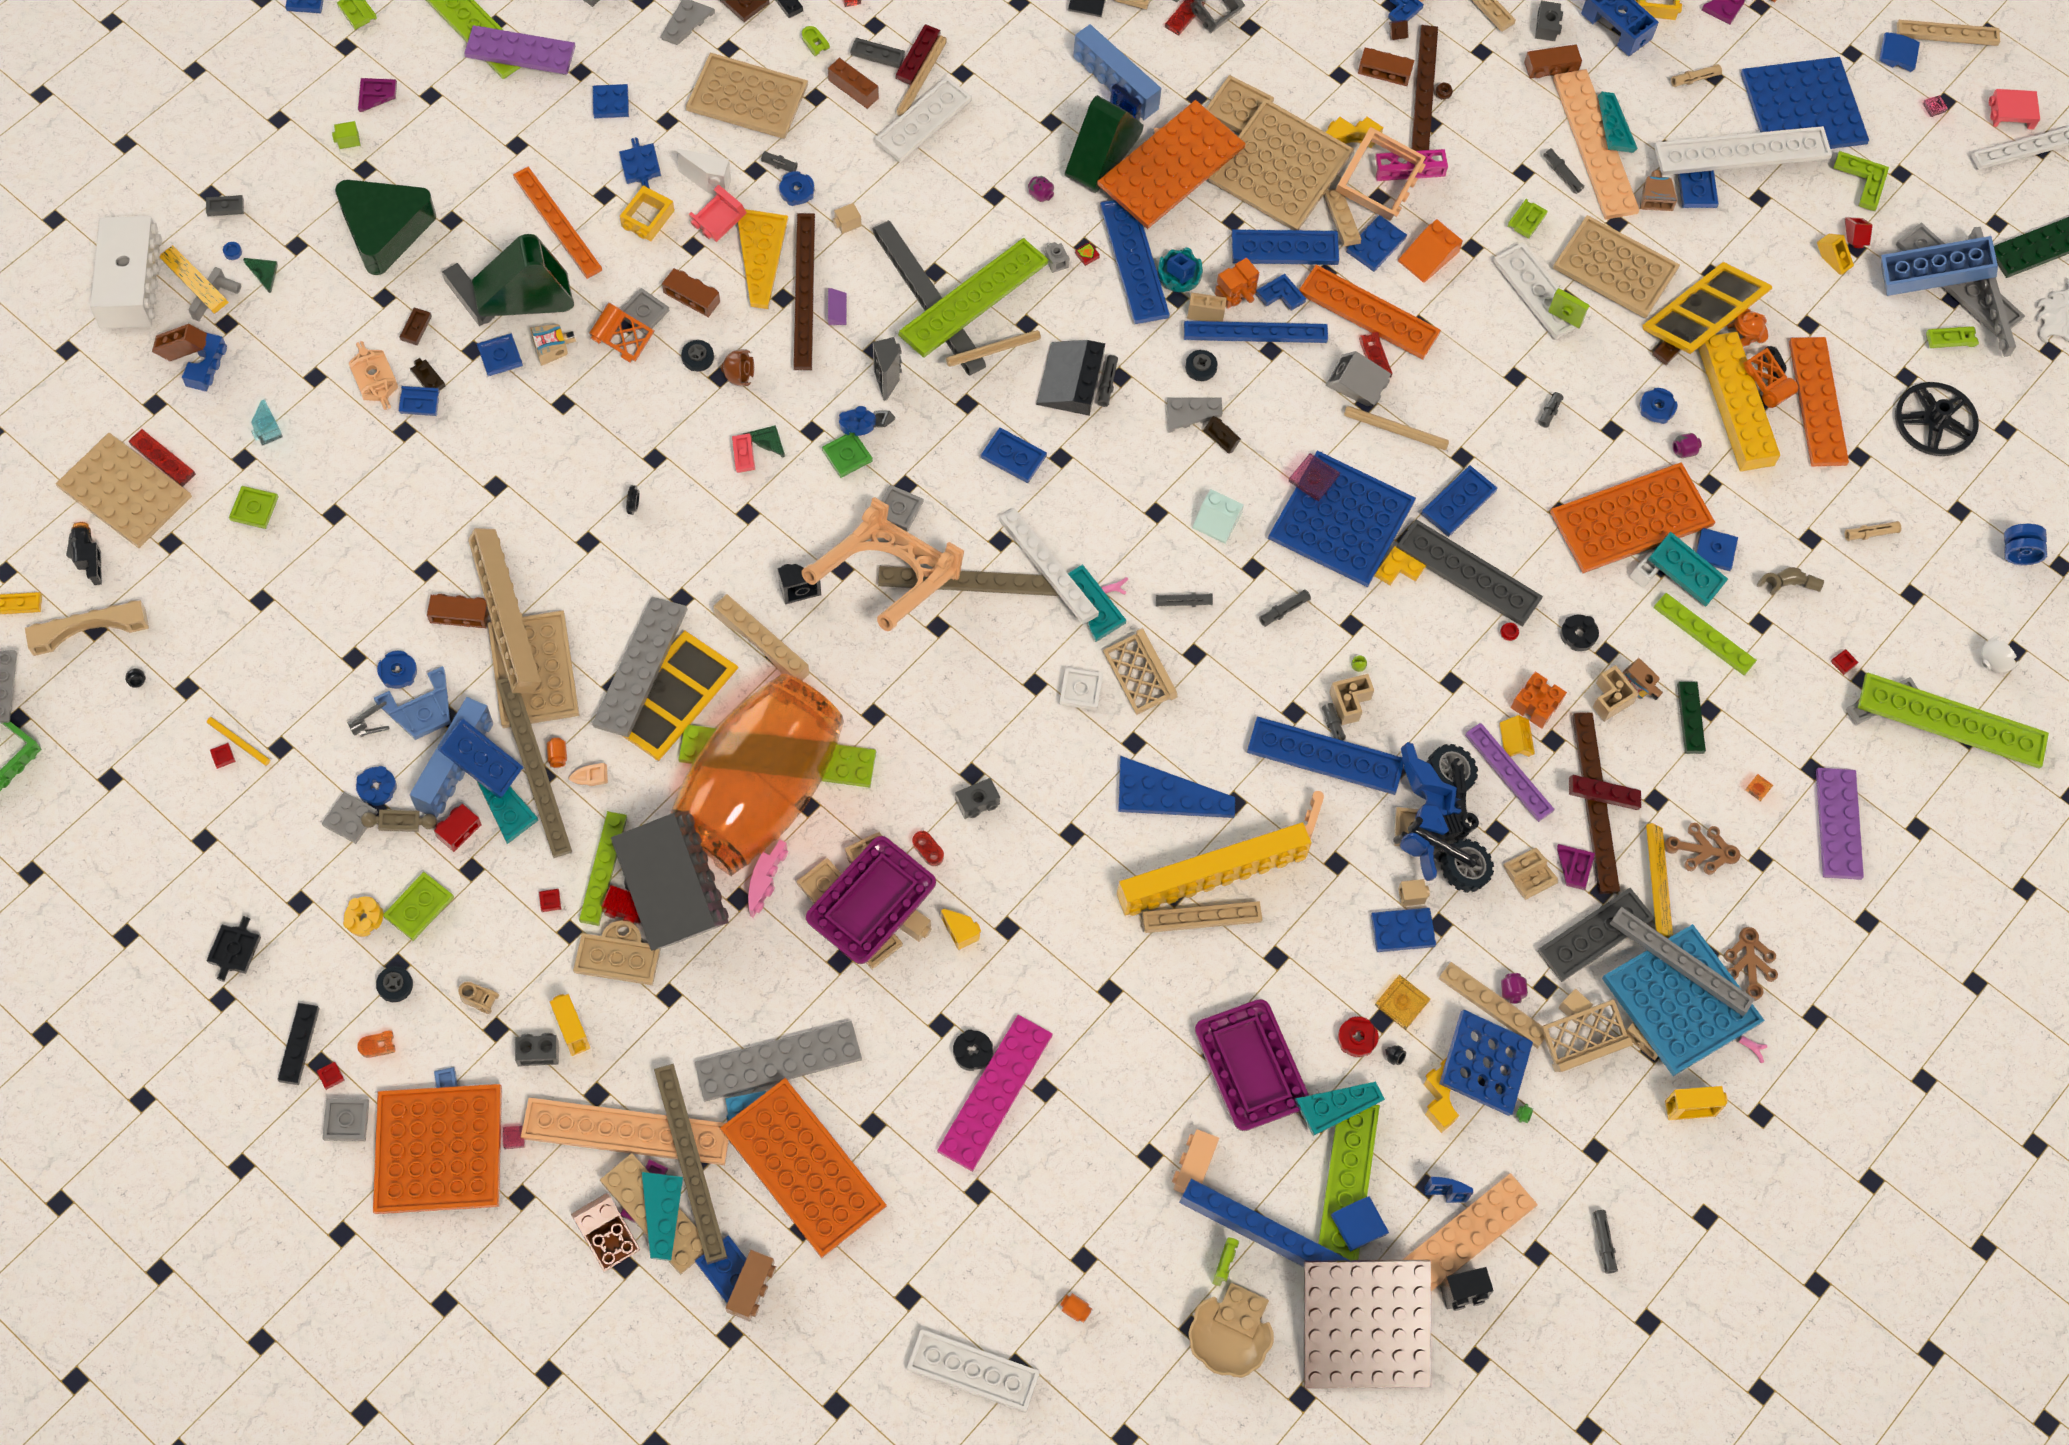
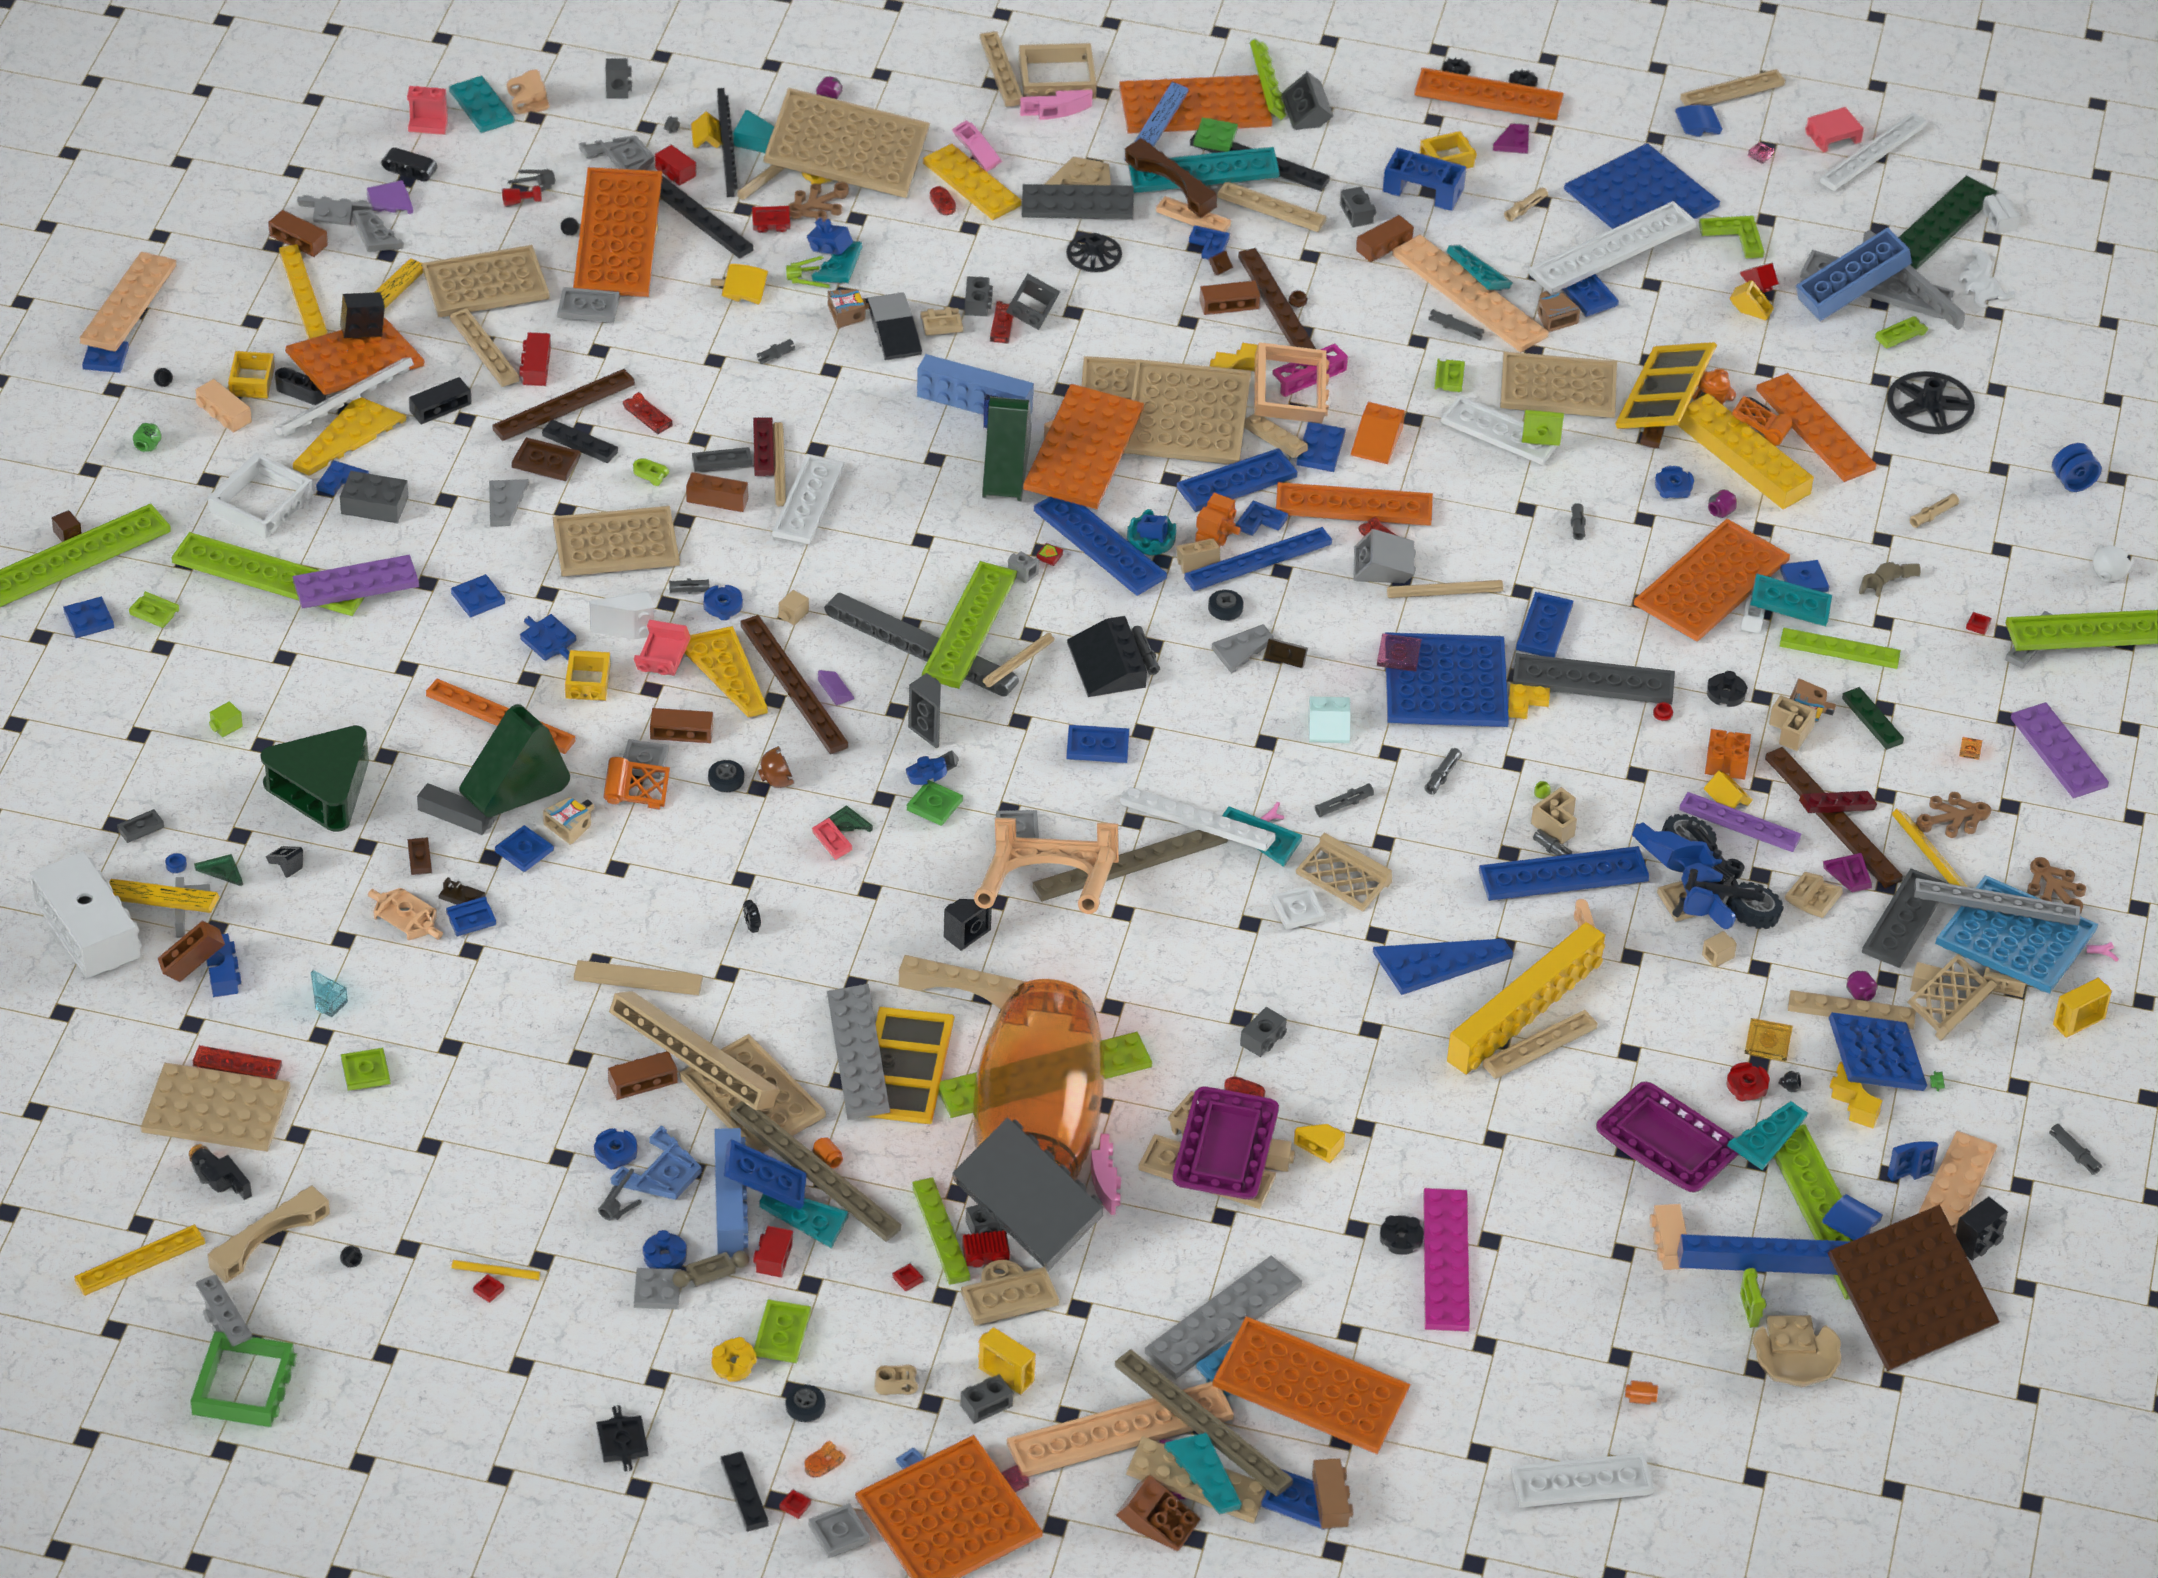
camera: 25 degrees left, 20 degrees down
(312, 286) = (288, 858): none -> black slope
(376, 92) = (227, 672): magenta wing -> none
(514, 515) = (638, 977): none -> tan tile
(590, 775) = (874, 1158): light nougat plate -> none
(1041, 188) = (967, 515): magenta head -> none
(1403, 930) = (1729, 983): blue plate -> none

